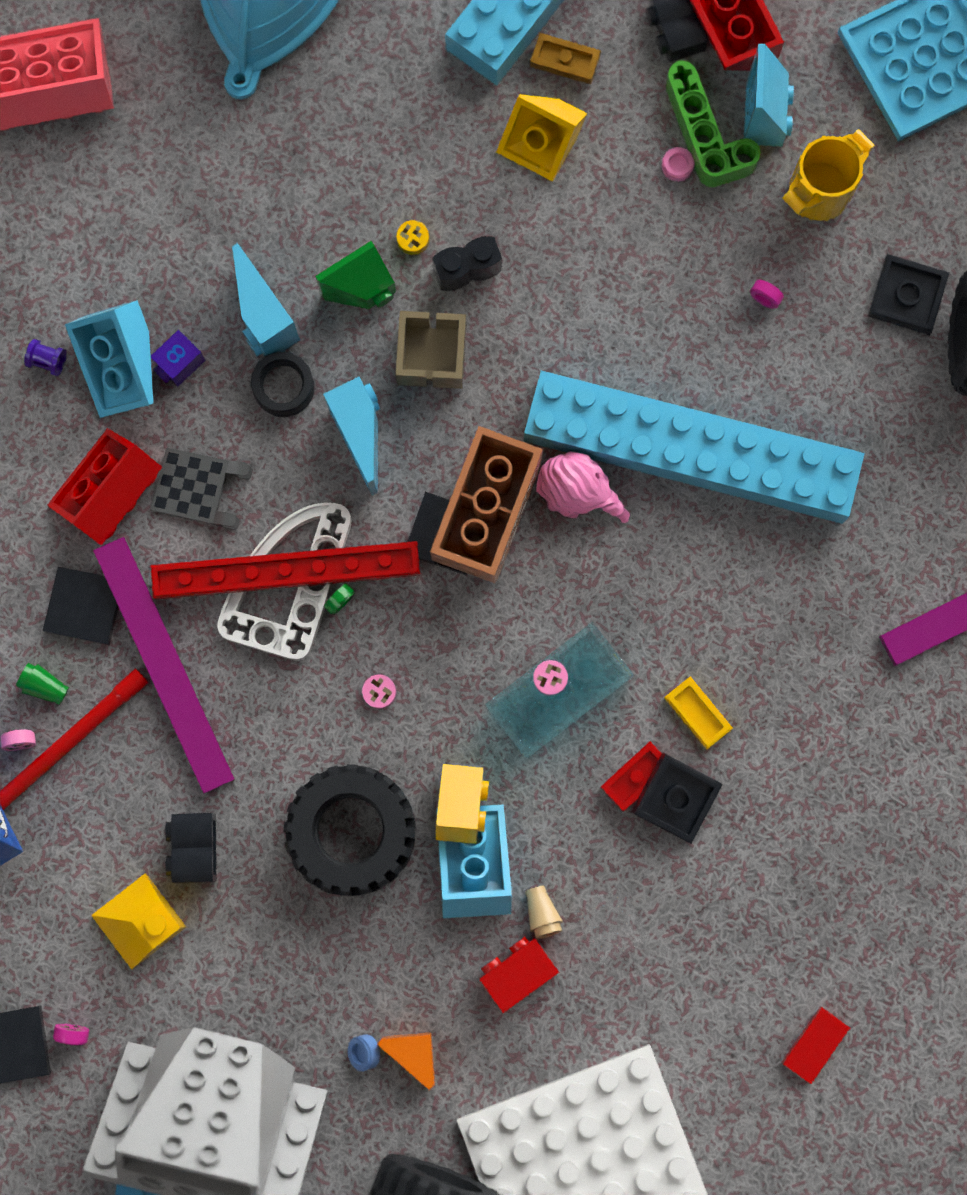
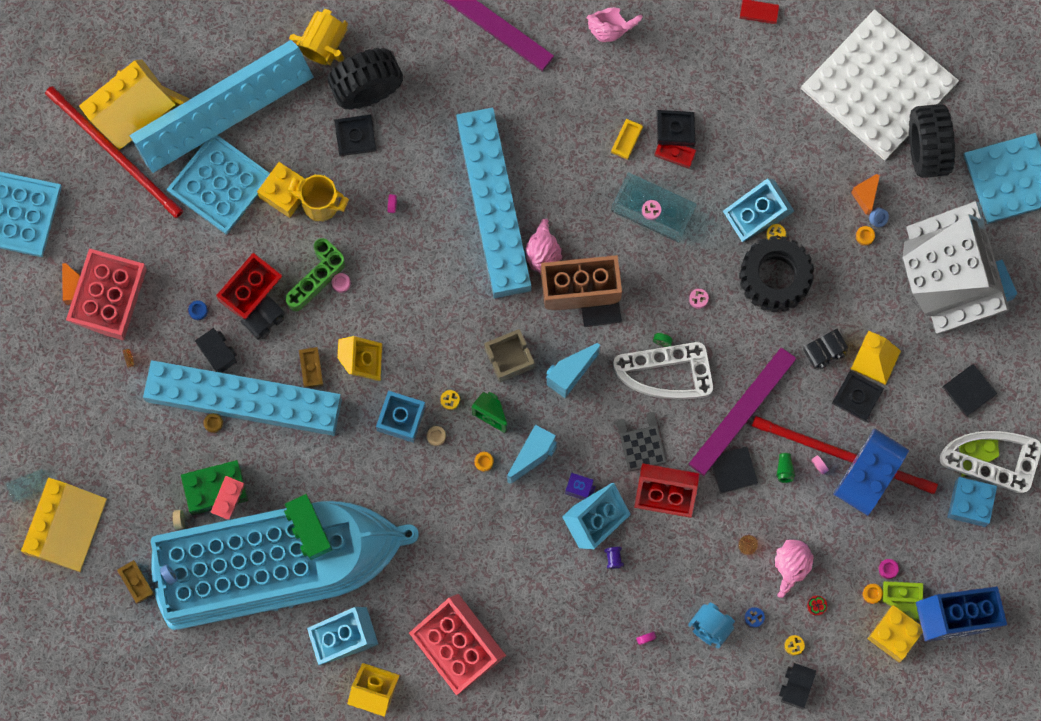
camera: 120 degrees left, 5 degrees down
(70, 1034) = (948, 361): dark pink tile -> none
(96, 860) = (857, 396): none -> black tile
(275, 360) = (569, 412): black tyre -> none
(285, 570) = (663, 373): red tile -> none
(293, 242) = (484, 461): none -> light orange tile
(347, 1015) = (865, 235): none -> light orange tile
(368, 192) = (436, 436): none -> tan tile
(419, 146) = (400, 416): none -> dark azure brick
(422, 870) = (776, 230): none -> yellow tile
(459, 804) = (735, 227): yellow brick -> none
(475, 261) = (447, 358): black brick -> none
(517, 974) = (801, 162): red brick -> none
(542, 913) = (766, 165): tan cone -> none
(767, 100) = (289, 249): medium azure slope -> none
(883, 129) = (275, 190): none -> yellow brick
(906, 777) = (609, 25): none -> bright pink hair

